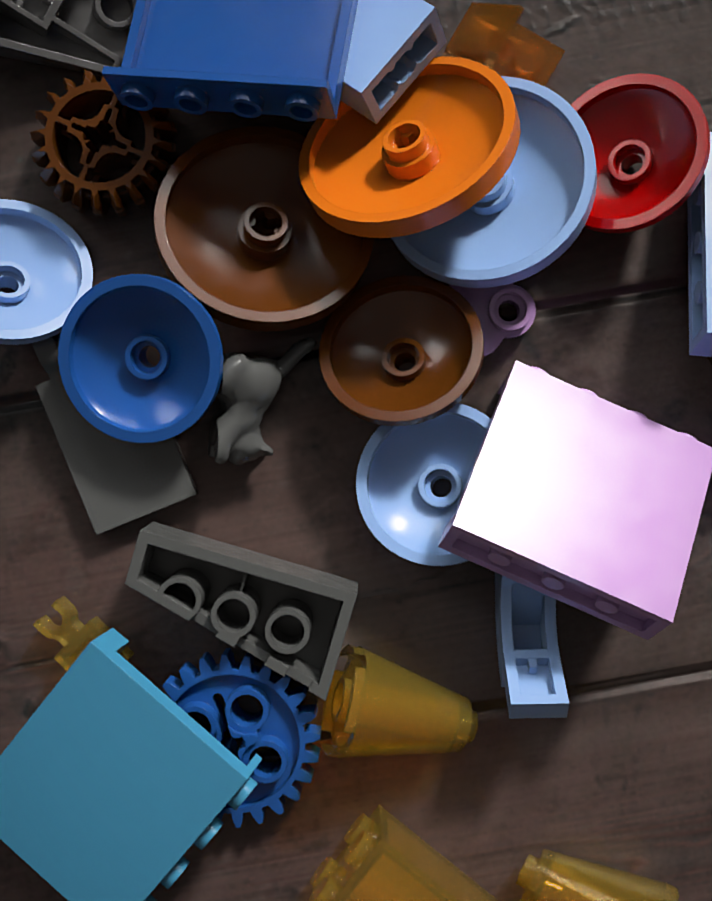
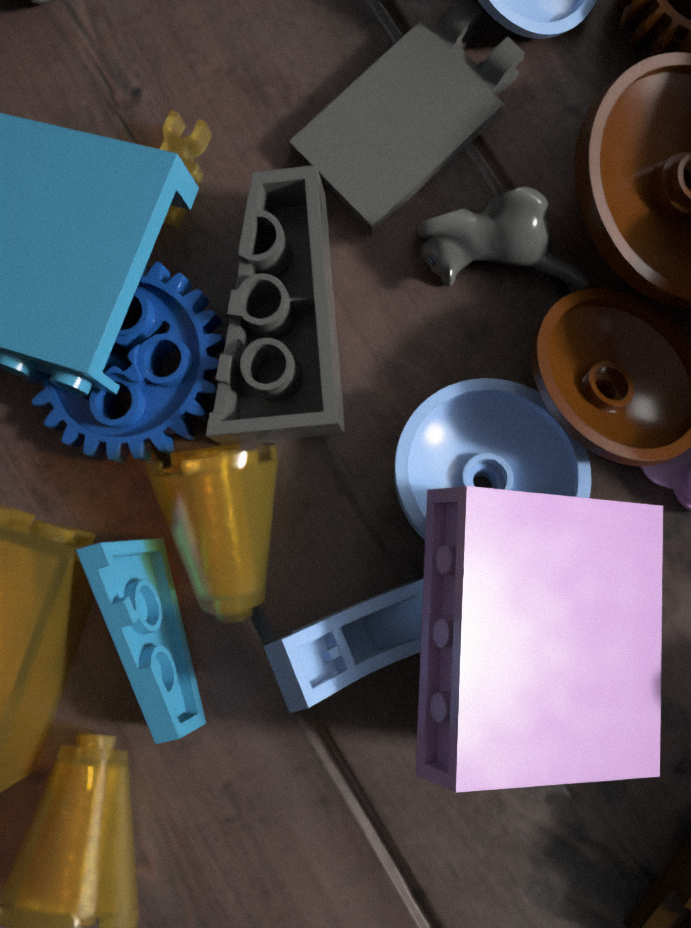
camera: 70 degrees right, 5 degrees down
(107, 363) = (493, 68): blue dish -> none
(457, 800) = (147, 628): none -> dark azure wing

